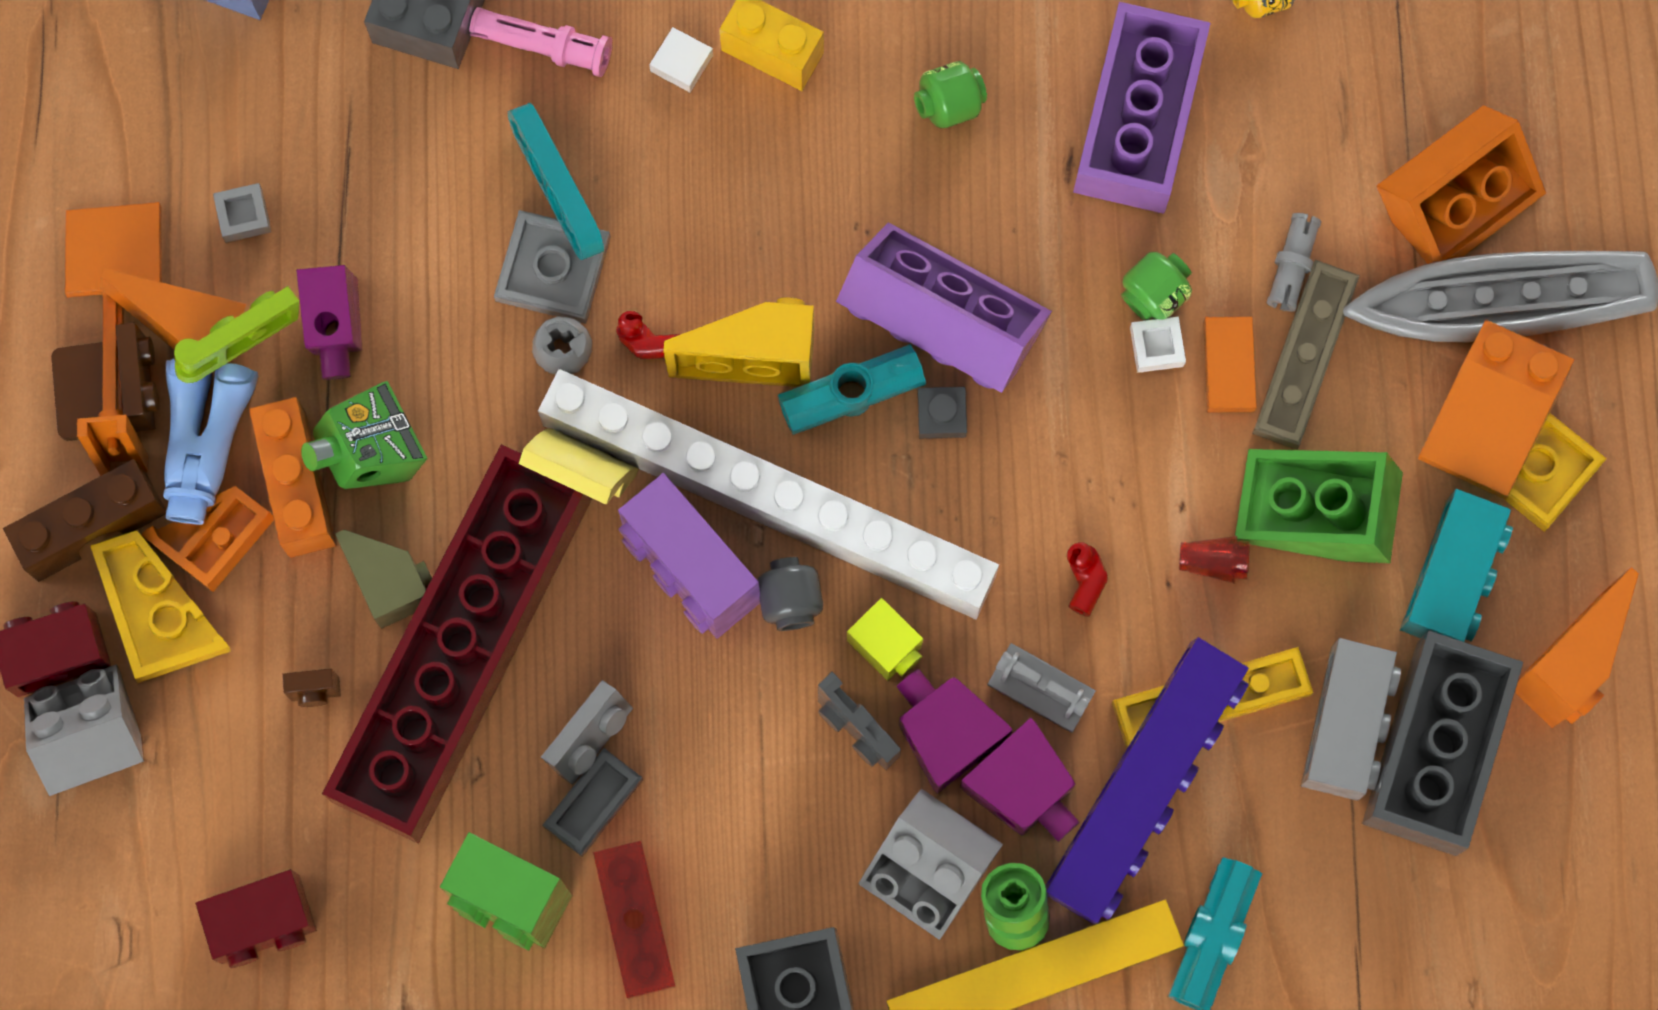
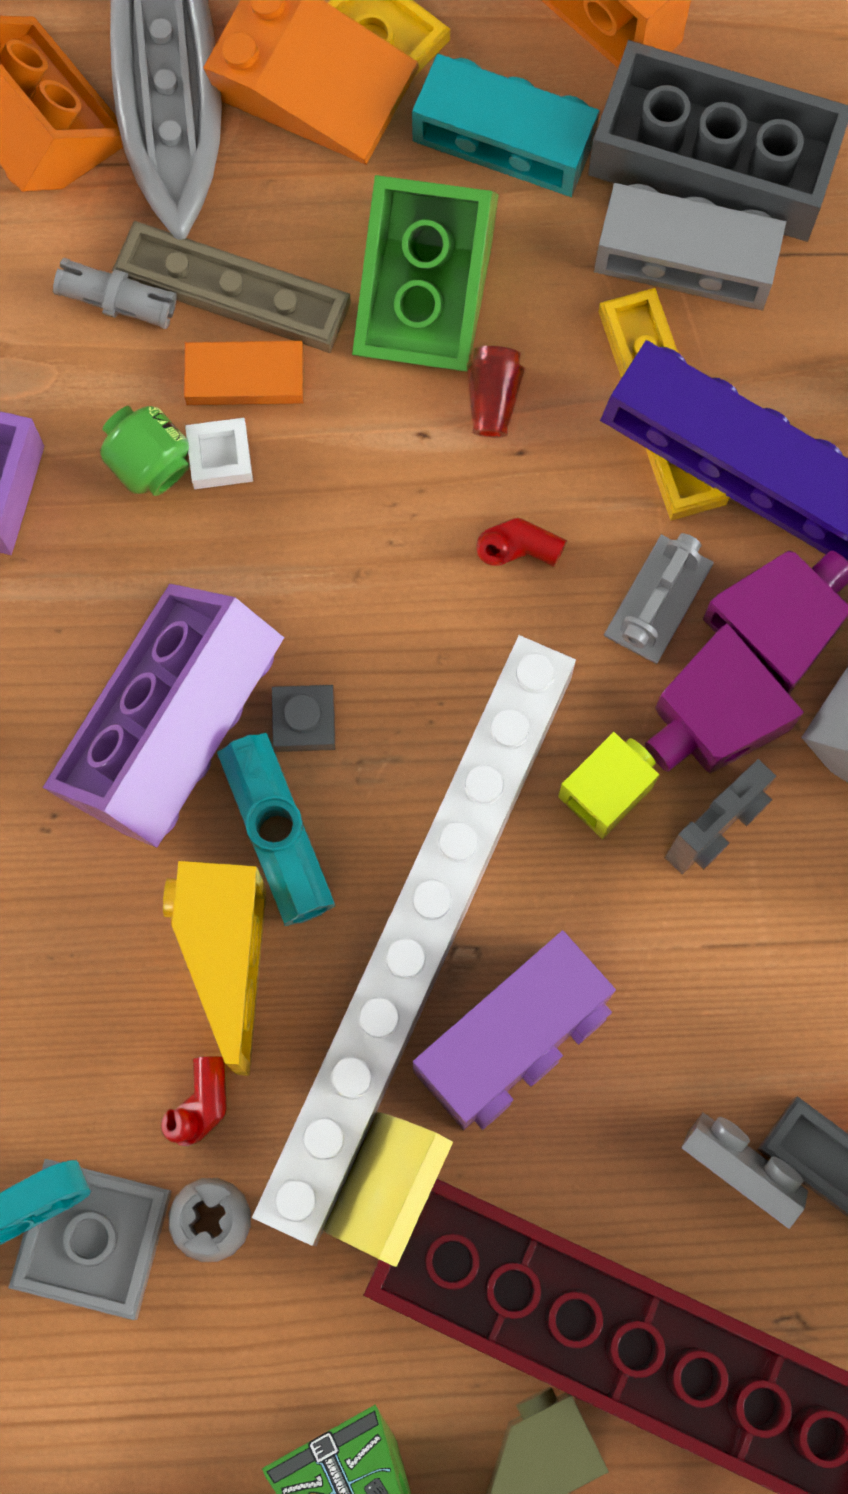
camera: 90 degrees left, 0 degrees up
(790, 594) = (552, 901): dark grey head -> none

